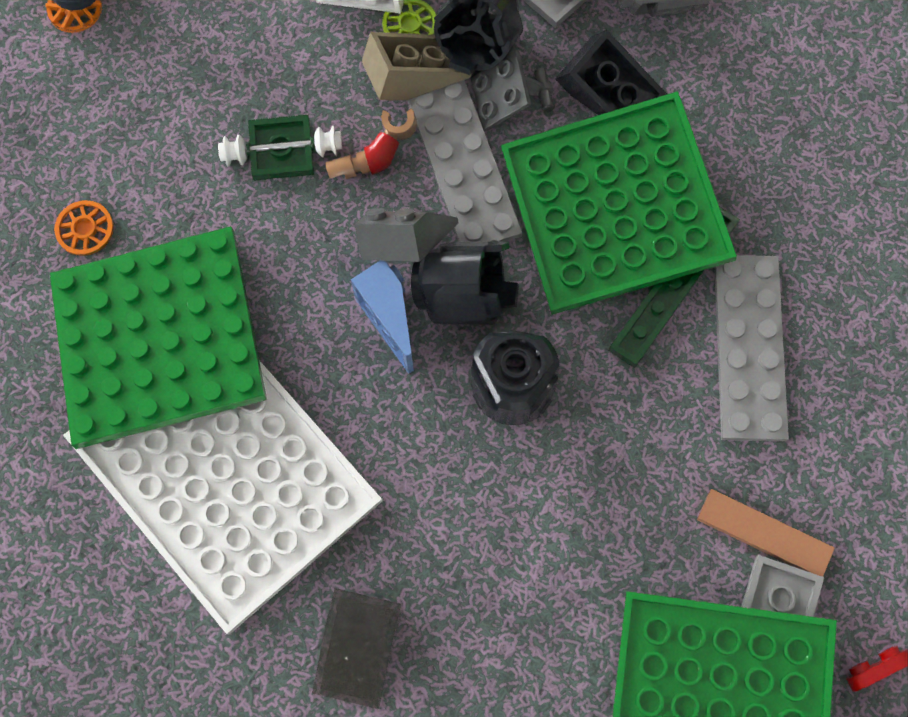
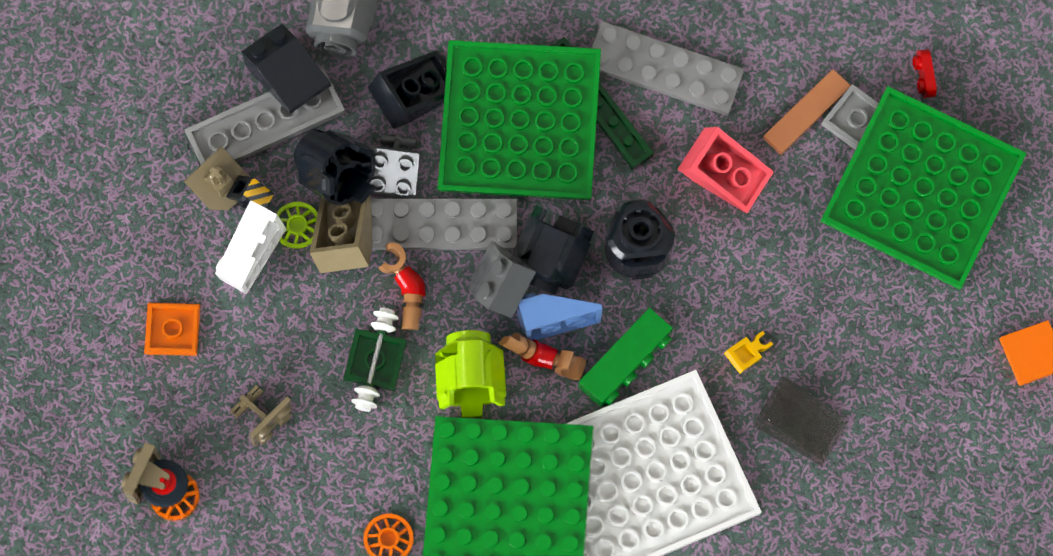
camera: 75 degrees left, 0 degrees up
(177, 62) = (279, 415): none -> dark tan plate
(291, 243) = (470, 373): none -> lime piece
(342, 321) = (545, 356): none -> medium nougat piece
(370, 413) = (625, 358): none -> green brick
(423, 552) = (745, 353): none -> yellow plate
(649, 457) = (725, 168): none -> coral slope

